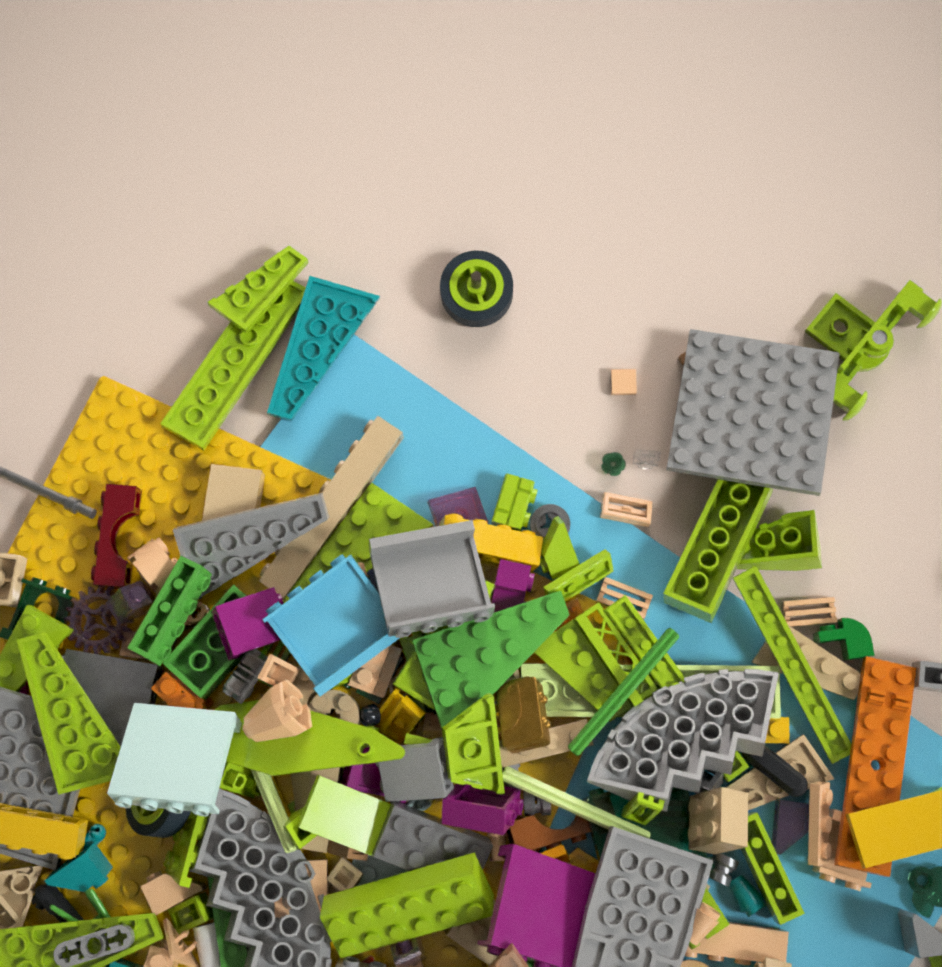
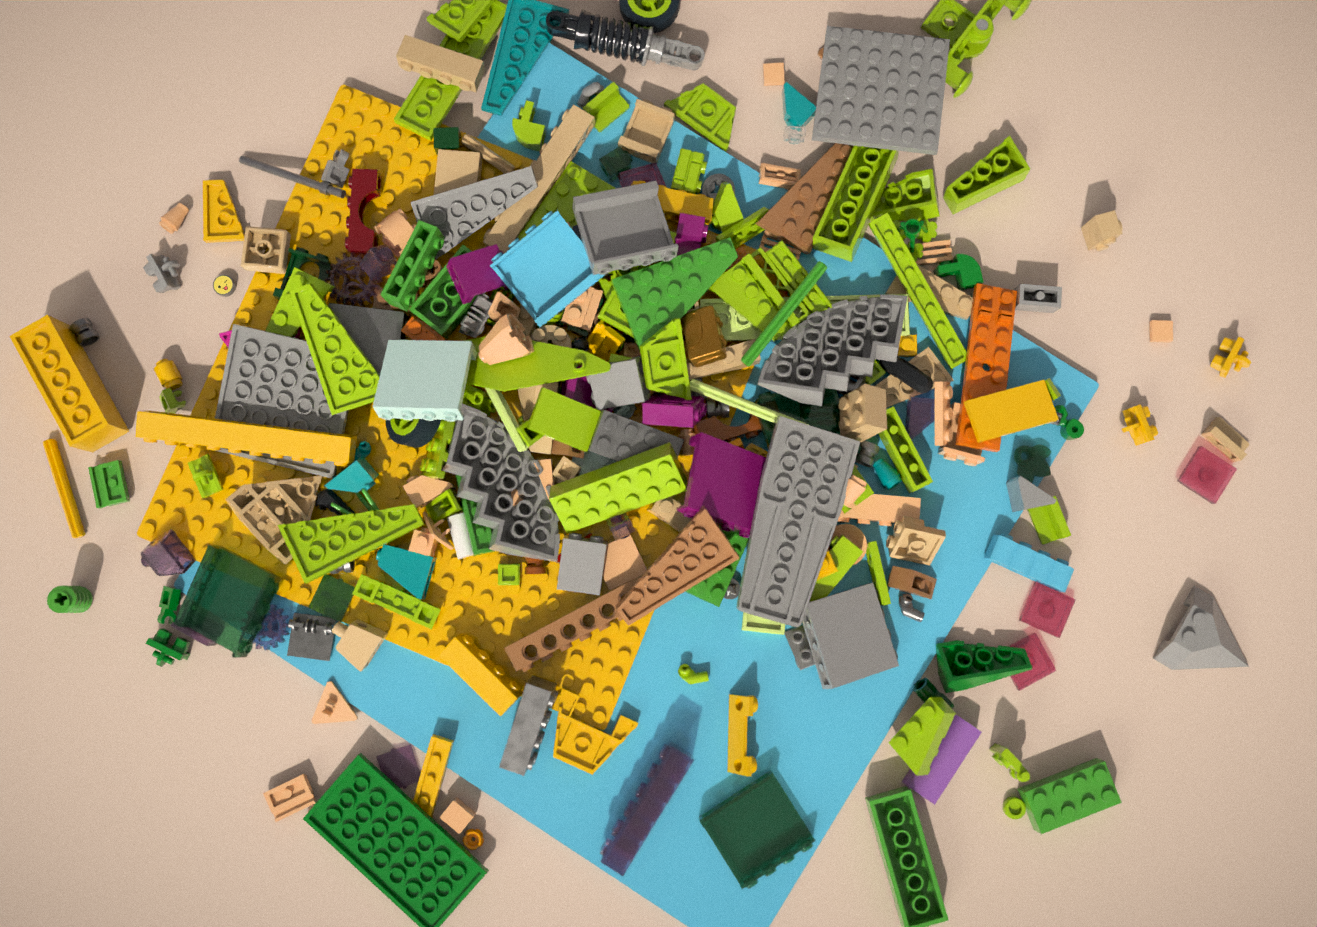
camera: 10 degrees left, 5 degrees up
(73, 944) = (355, 541): light grey beam -> none
(86, 484) = (335, 171): none -> light grey plate
(220, 359) = (440, 63): none -> tan brick
(222, 450) = (446, 138): none -> dark green panel
(271, 470) = (487, 154): none -> tan axle
(320, 445) = (526, 132): none -> lime brick
(397, 396) = (587, 92): none -> light grey arm
(418, 417) = (606, 107): none -> lime panel
(426, 487) = (615, 162): none -> clear green brick
(461, 341) = (622, 40): none -> black piece
(466, 448) = (647, 131): none -> tan panel
(539, 427) = (705, 113): none -> lime wing
(613, 457) = (767, 135): clear green plate -> none
(638, 805) = (805, 397): lime tile -> none
(649, 426) = (796, 108): none -> teal slope
(654, 548) = (803, 205): none -> medium nougat wing
(788, 587) = (914, 229): none -> plant
(890, 517) = (989, 176): none -> lime wedge

